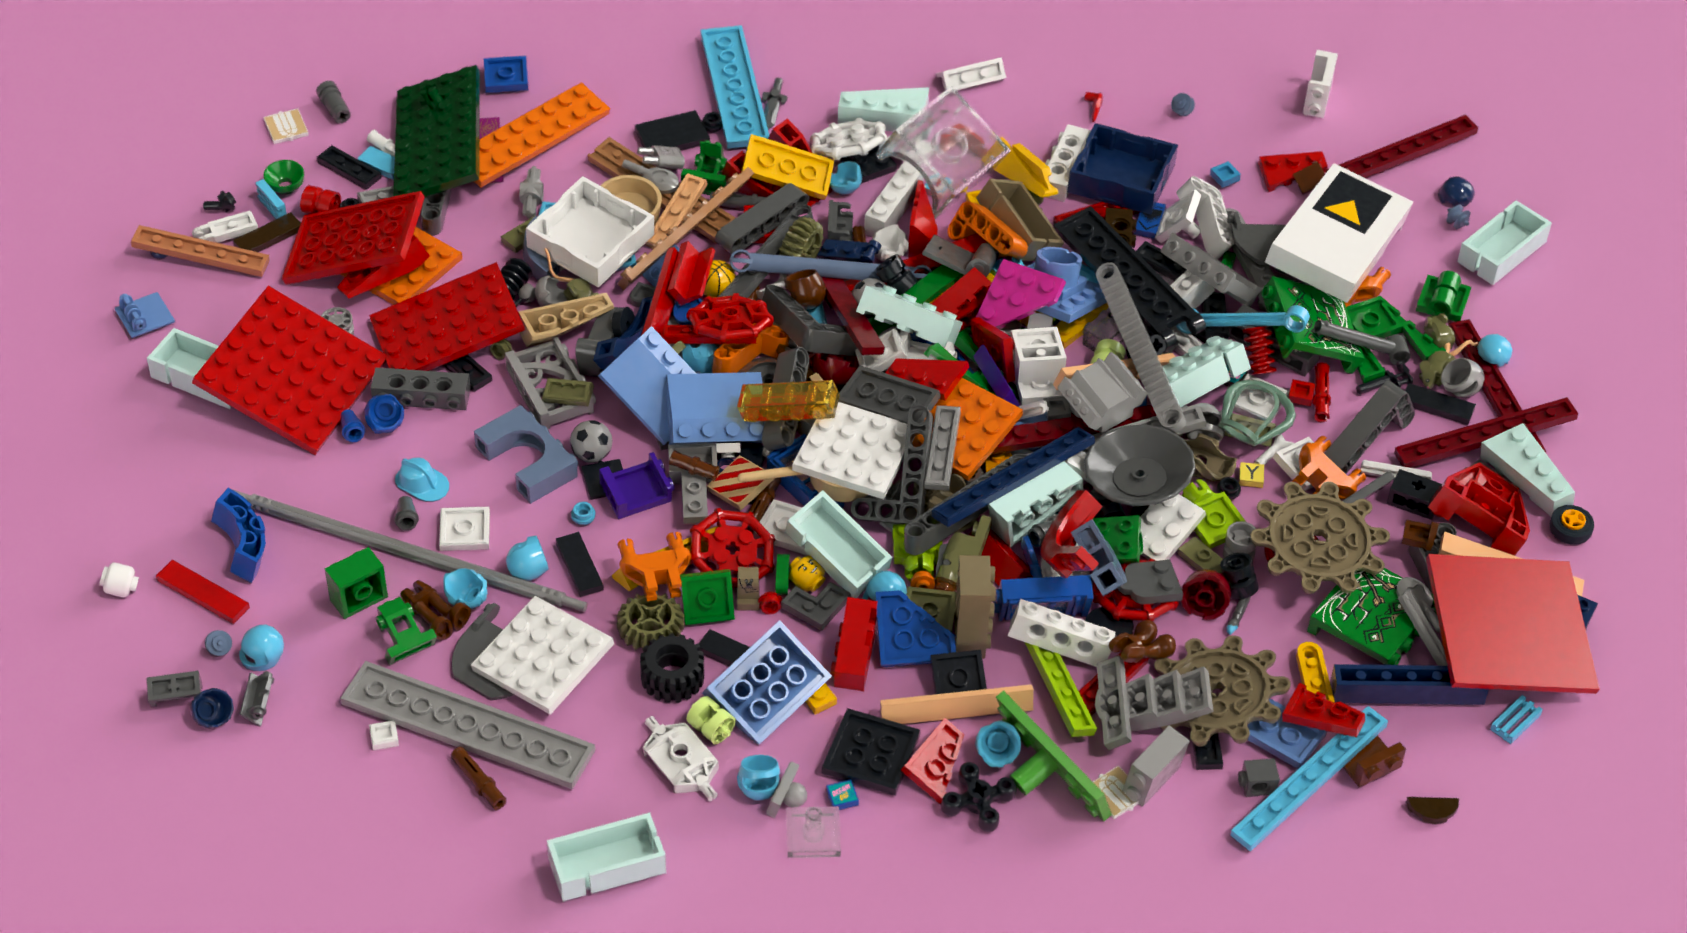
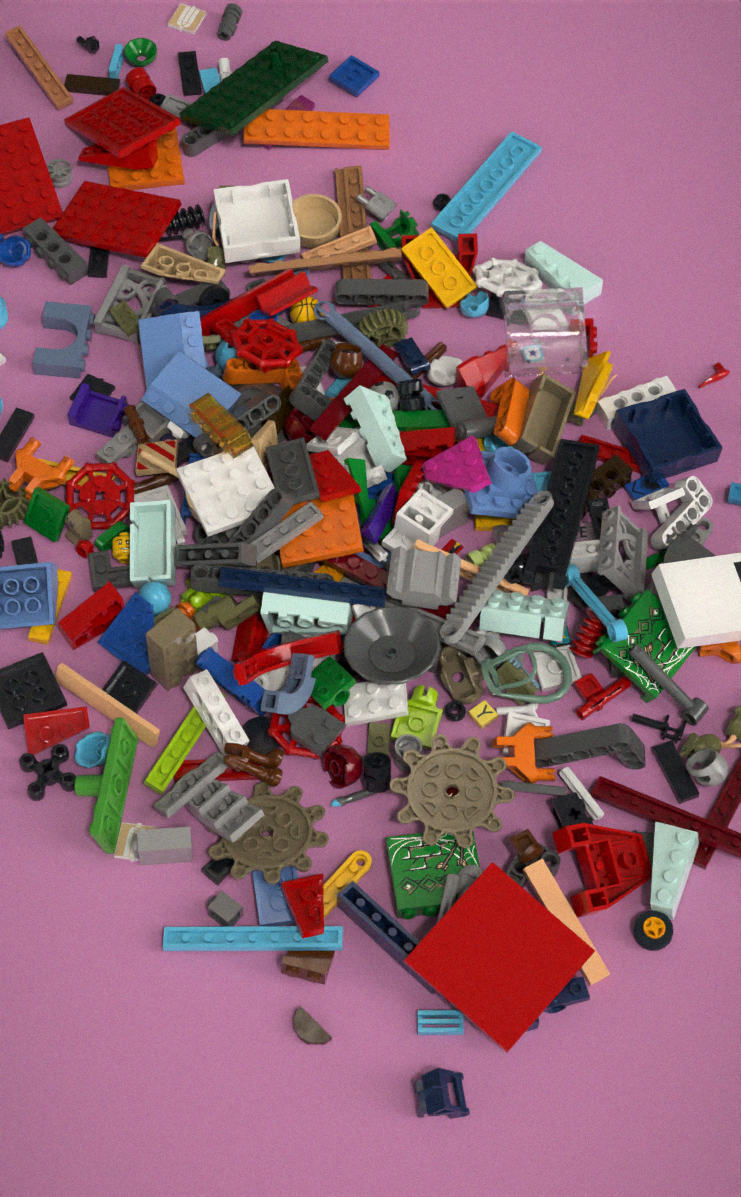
camera: 45 degrees right, 10 degrees up
(226, 228) = (72, 63): white hinge -> none
(500, 348) = (132, 261): olive plate -> none
(531, 192) = (272, 168): light grey axle -> none
(583, 513) = (51, 400): medium azure plate -> none
(591, 441) = (103, 361): light grey piece -> none
(664, 179) = (354, 216): light grey piece -> none
(678, 131) = (410, 191): black tile -> none
(772, 105) = (498, 217): dark grey sword -> none
(839, 222) = (432, 332): dark grey hinge -> none
(893, 199) = (476, 342): white brick -> none
(909, 507) = (222, 554): none -> dark grey brick
(973, 74) = (654, 292): white panel -> none
(1383, 320) = (703, 678): green wing -> none
(1589, 767) = (434, 1094): none -> dark blue piece

